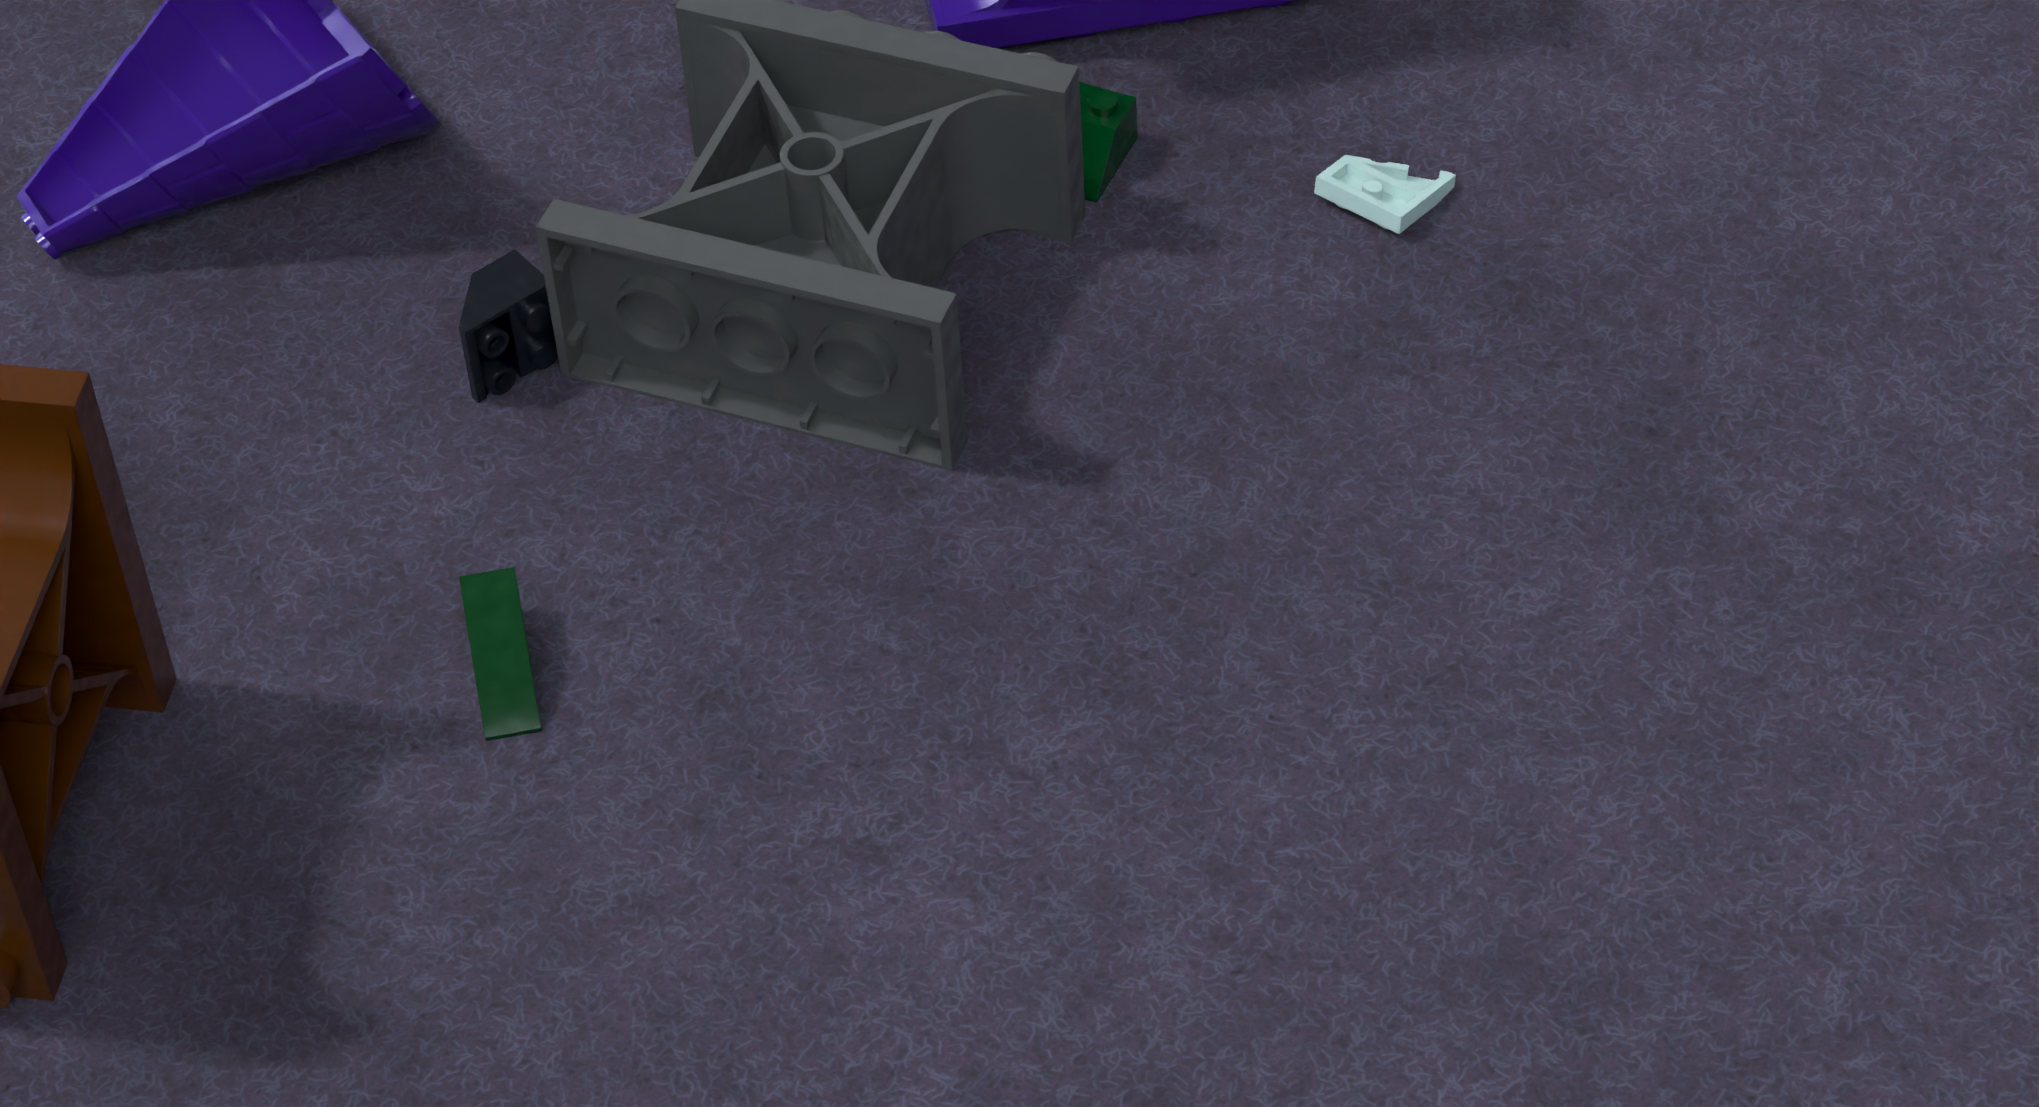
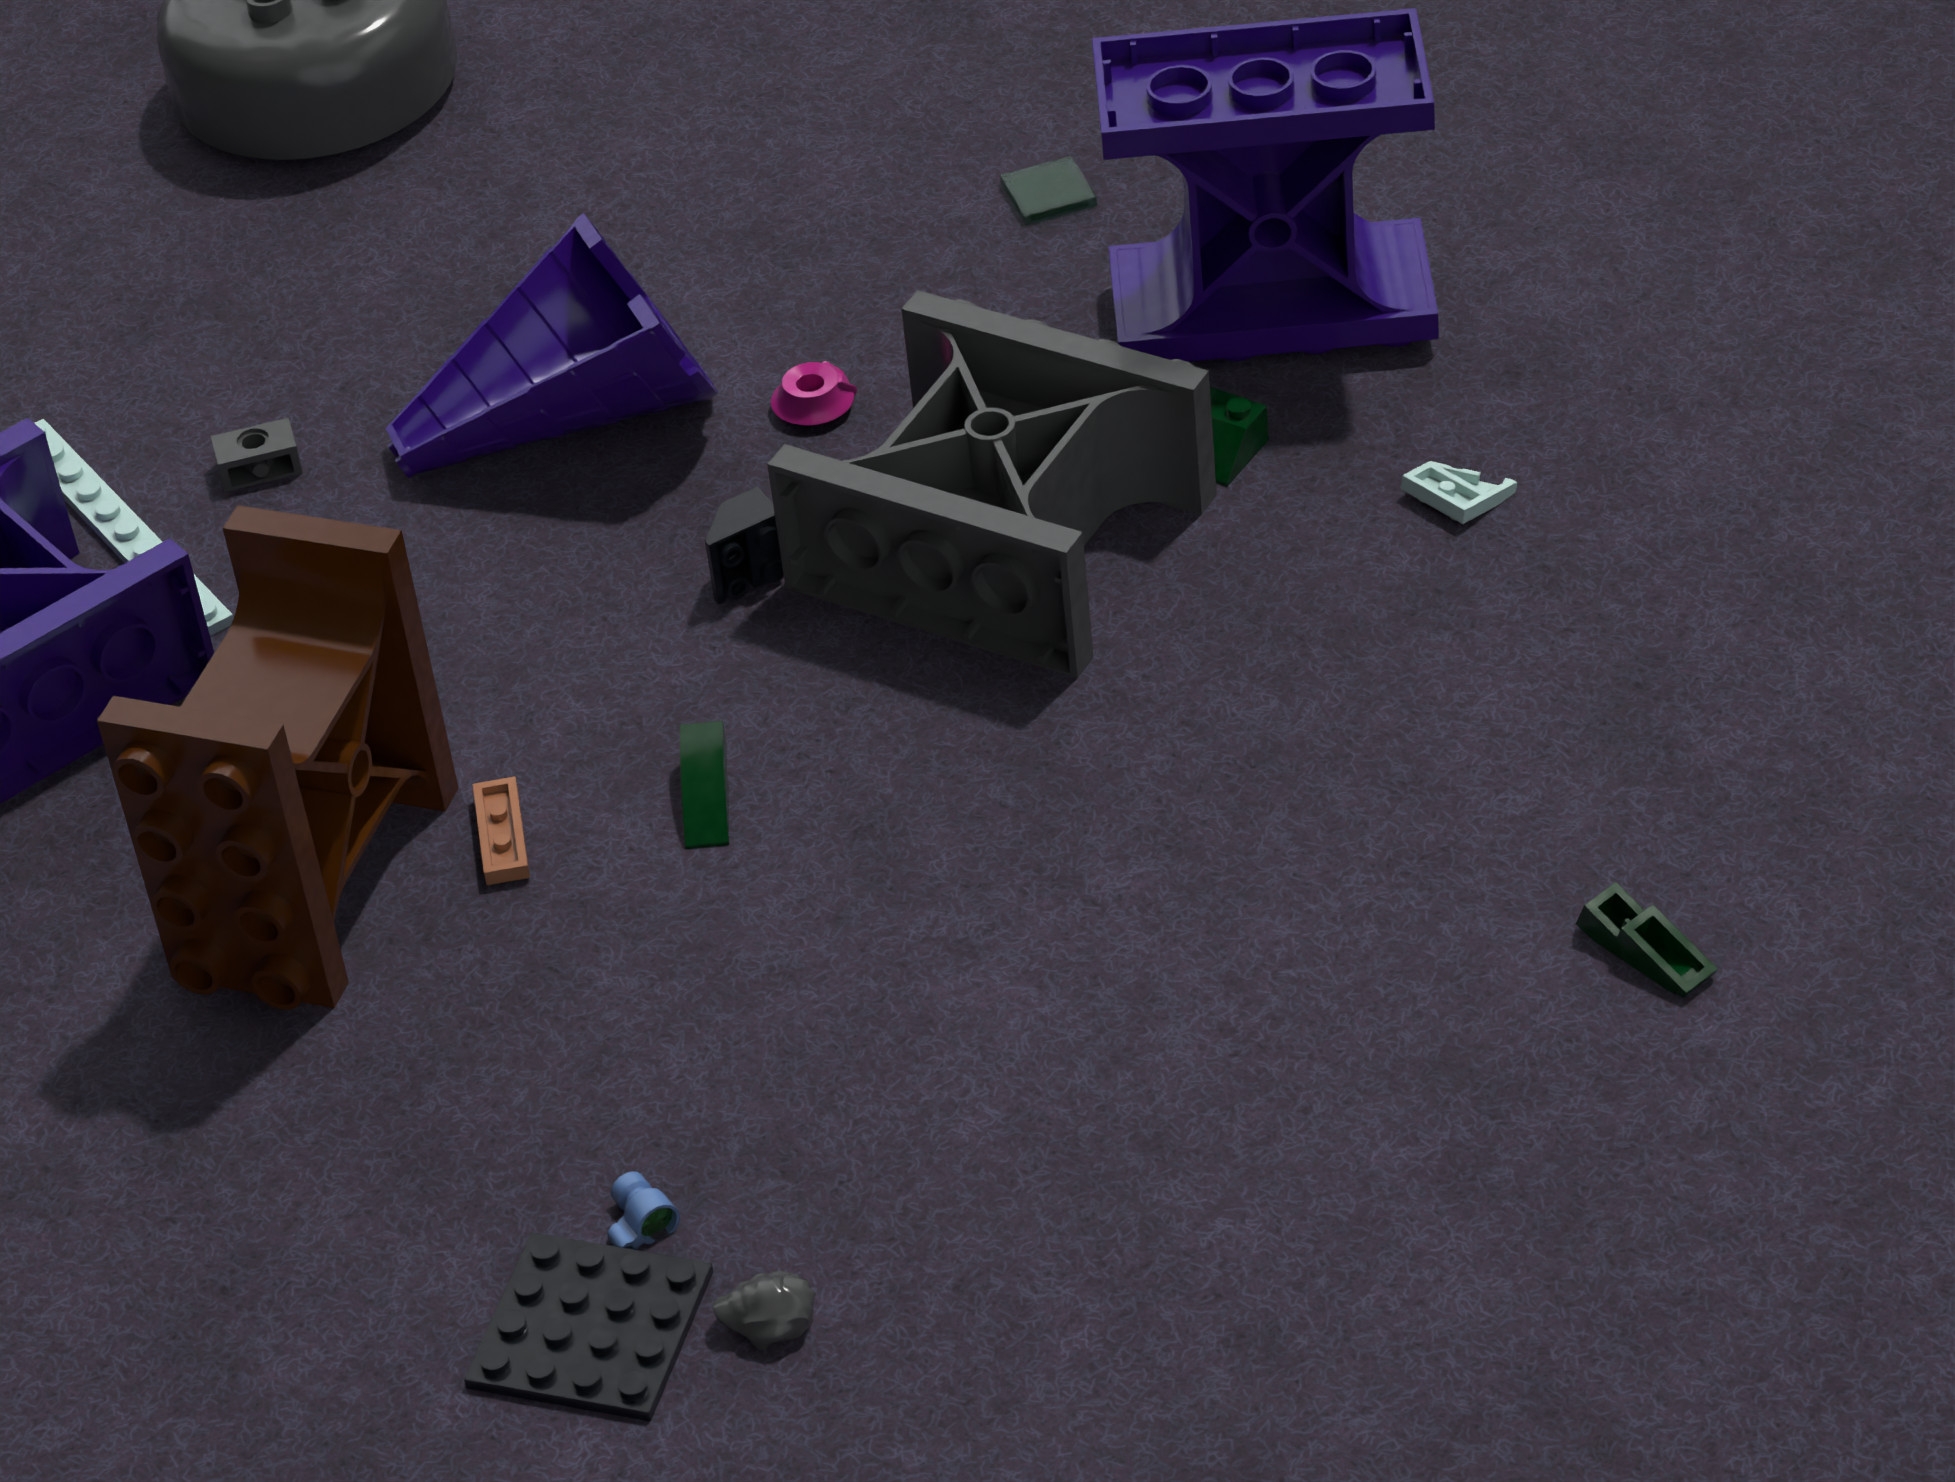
camera: 10 degrees right, 5 degrees down
(242, 736) = (501, 831): none -> nougat plate
(559, 116) = (813, 394): none -> dark pink piece
(1731, 776) = (1645, 941): none -> dark green slope

